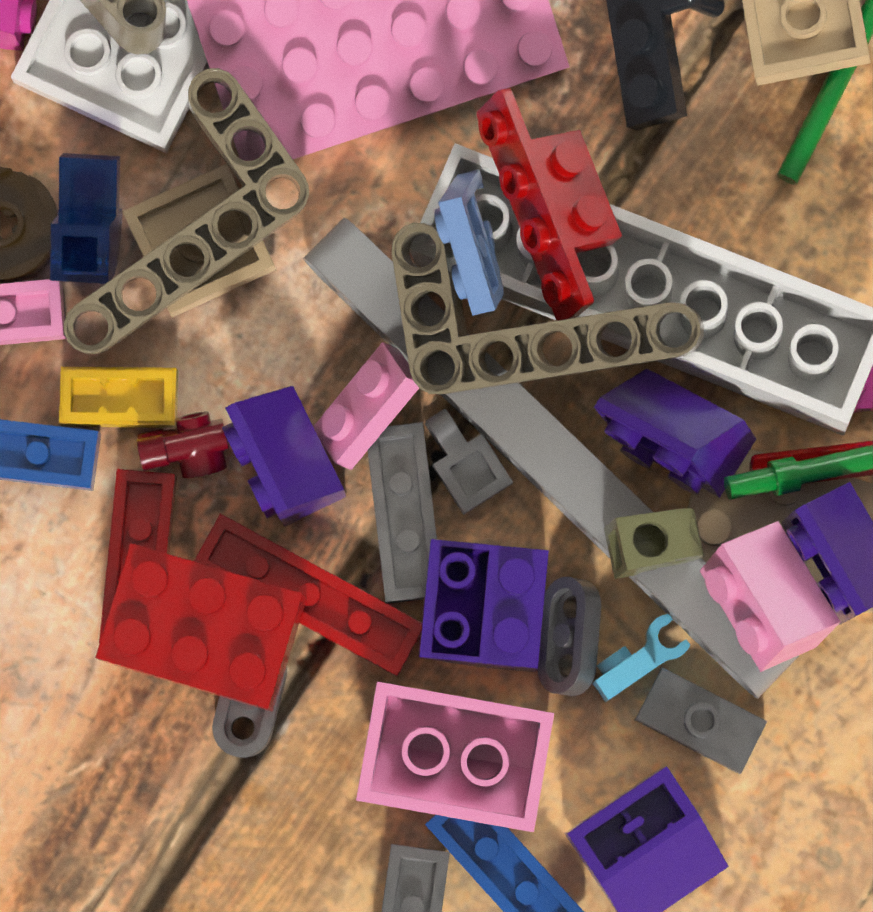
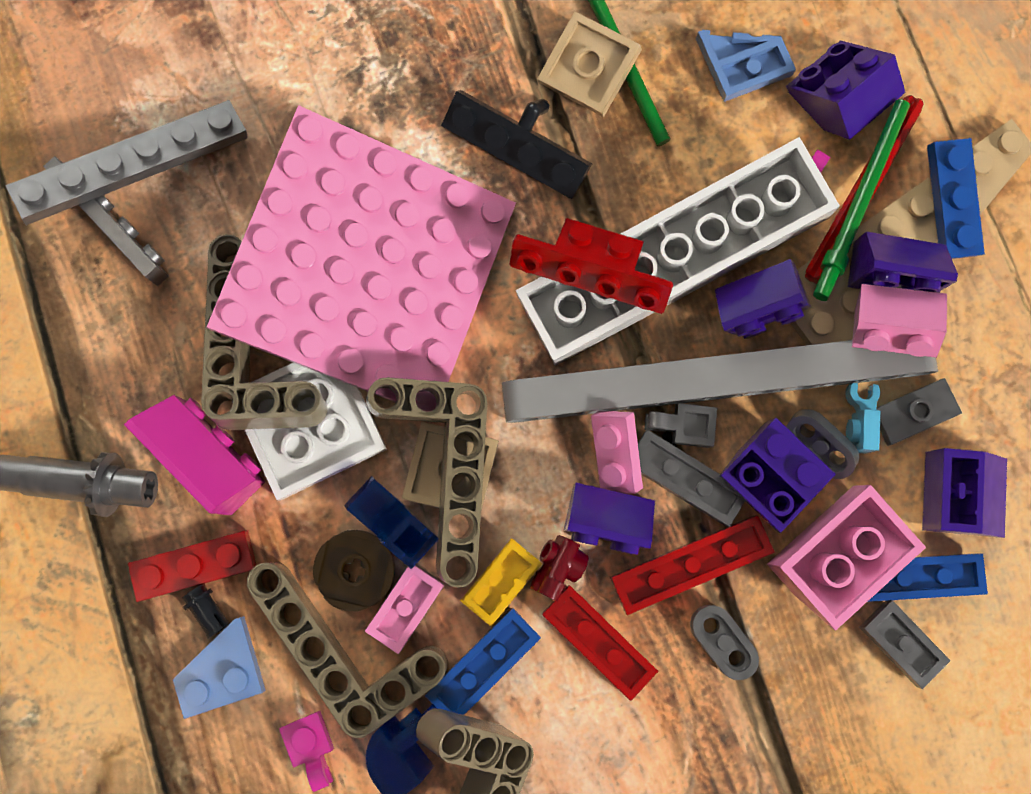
camera: 55 degrees left, 0 degrees up
(201, 627) = (675, 639): red brick -> none
(472, 242) = (574, 319): medium blue wing -> none
(526, 341) = (659, 336): dark tan beam -> none
(652, 541) = (821, 359): olive leg -> none

